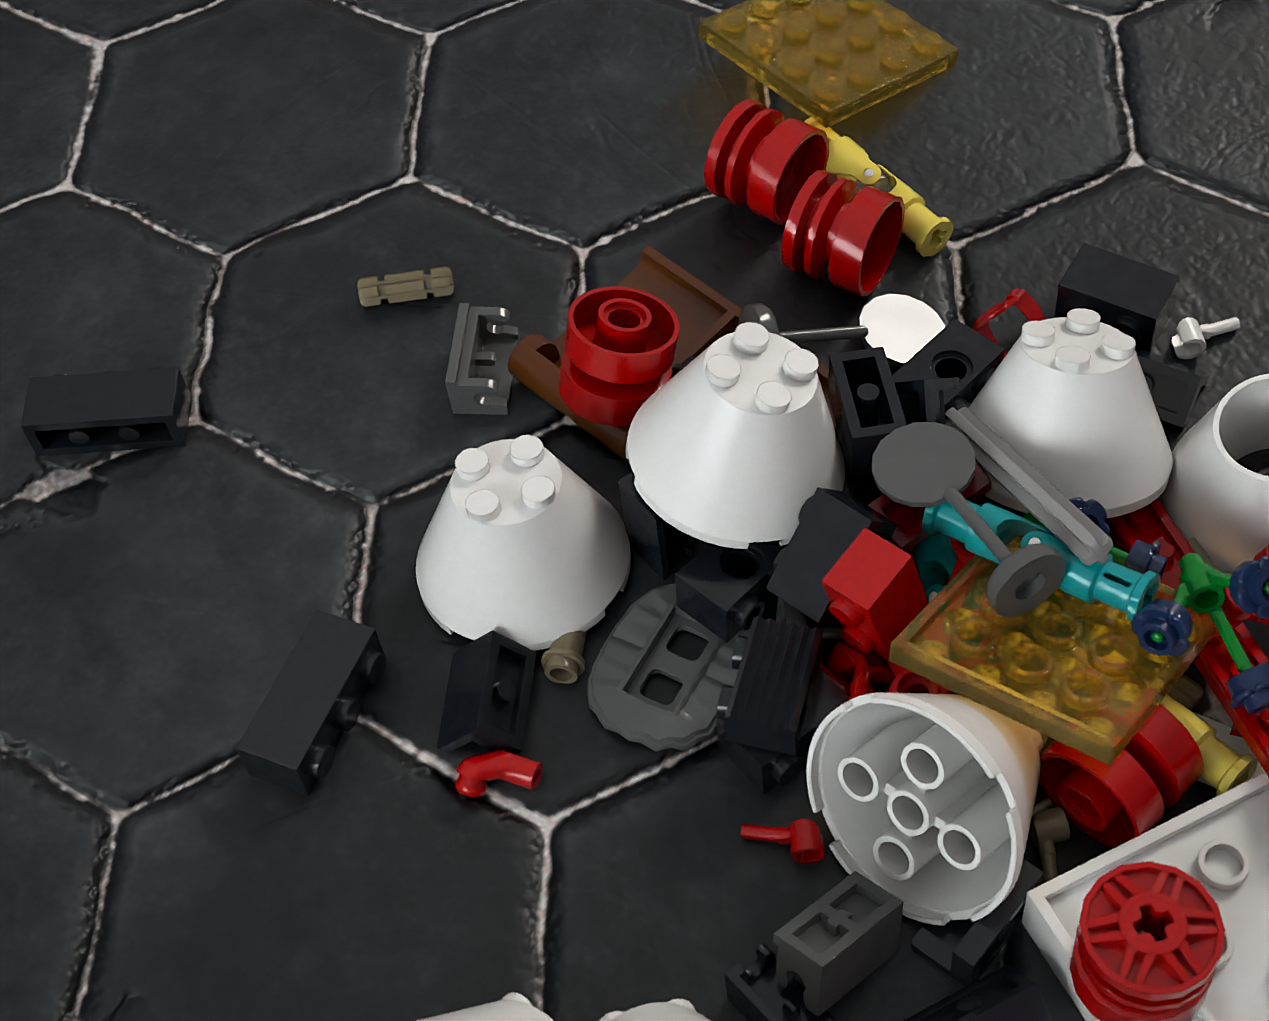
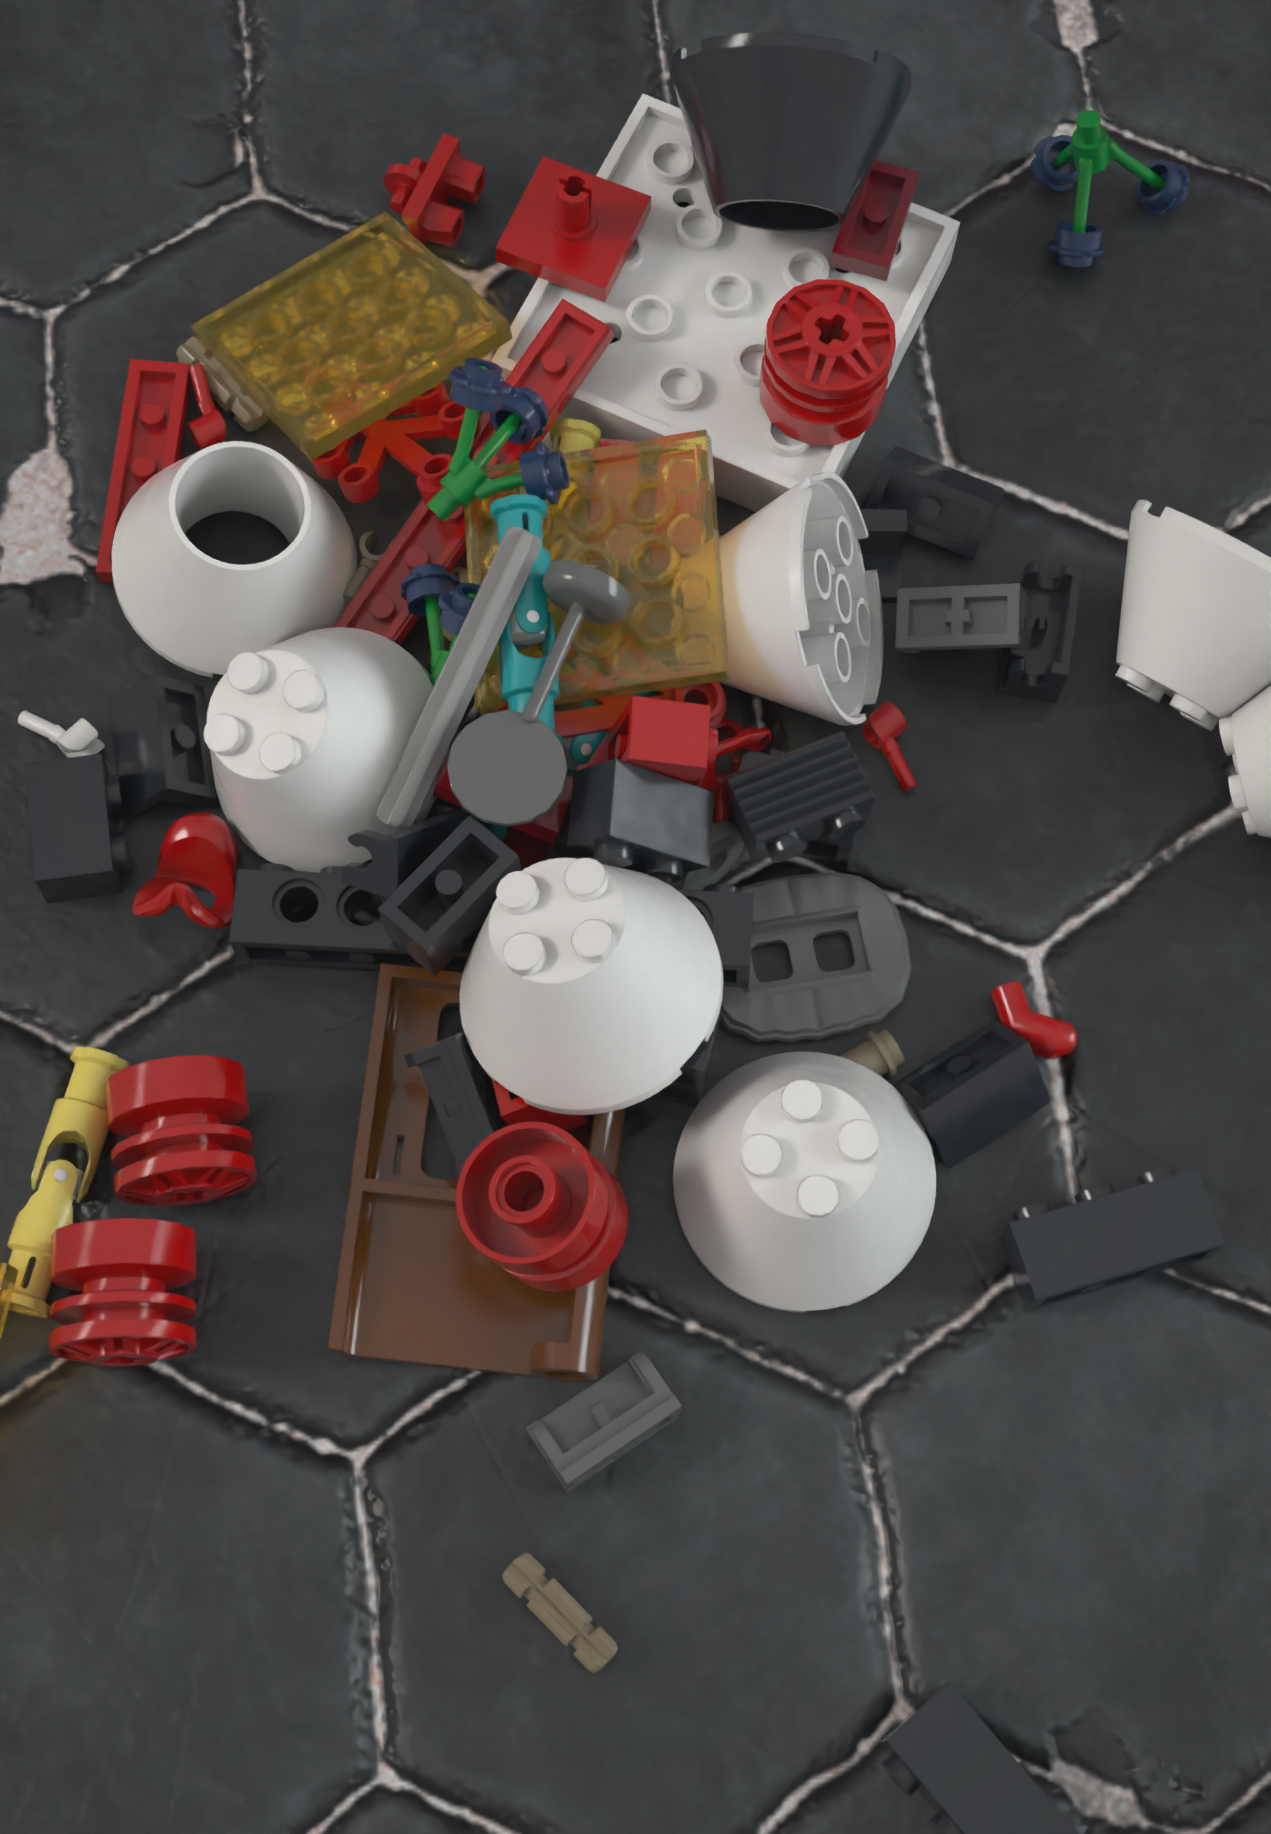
camera: 140 degrees left, 15 degrees up
(887, 321) = (261, 1015): piece -> none

